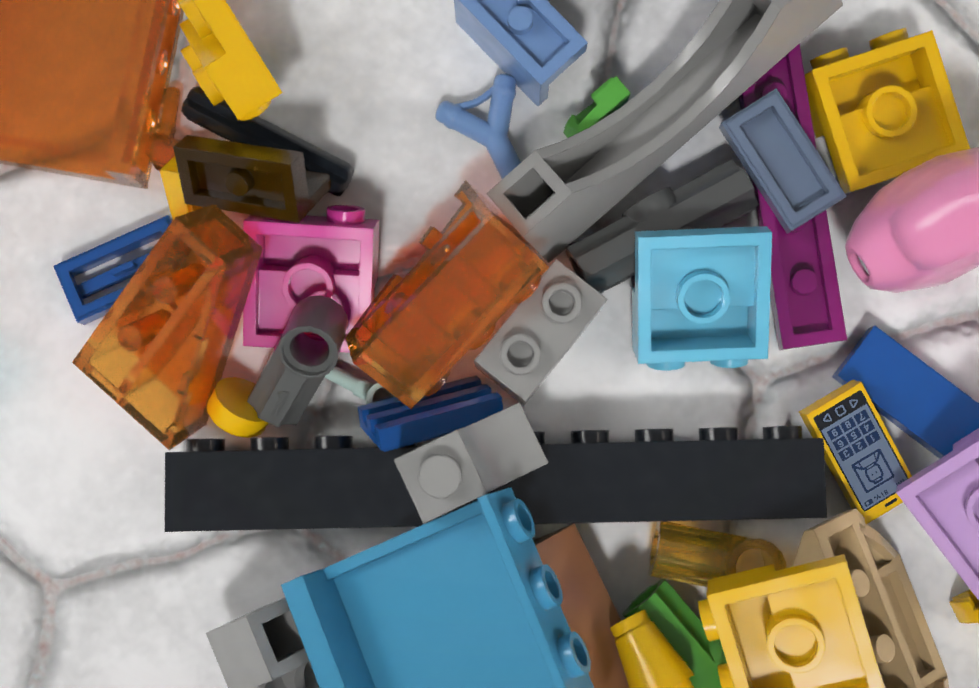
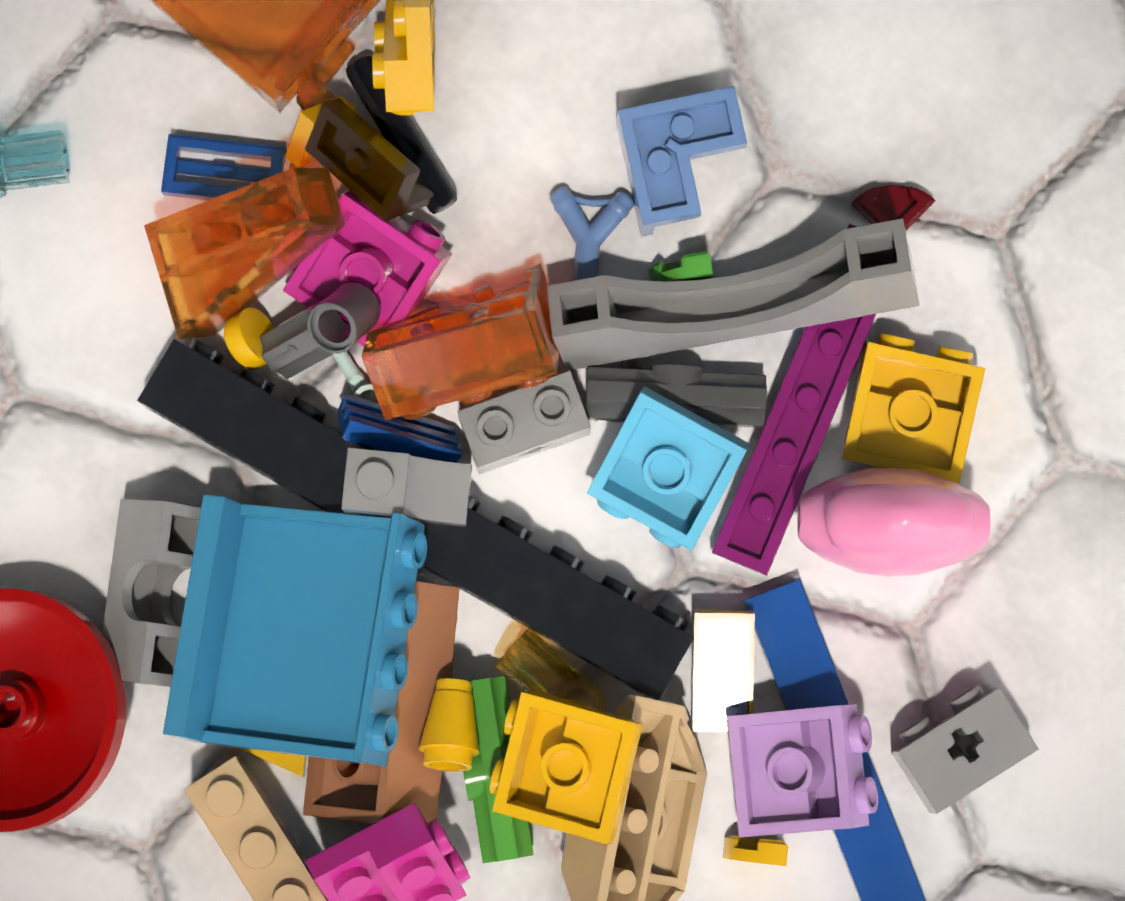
camera: 25 degrees right, 0 degrees up
(782, 161) = (800, 400): sand blue tile -> none

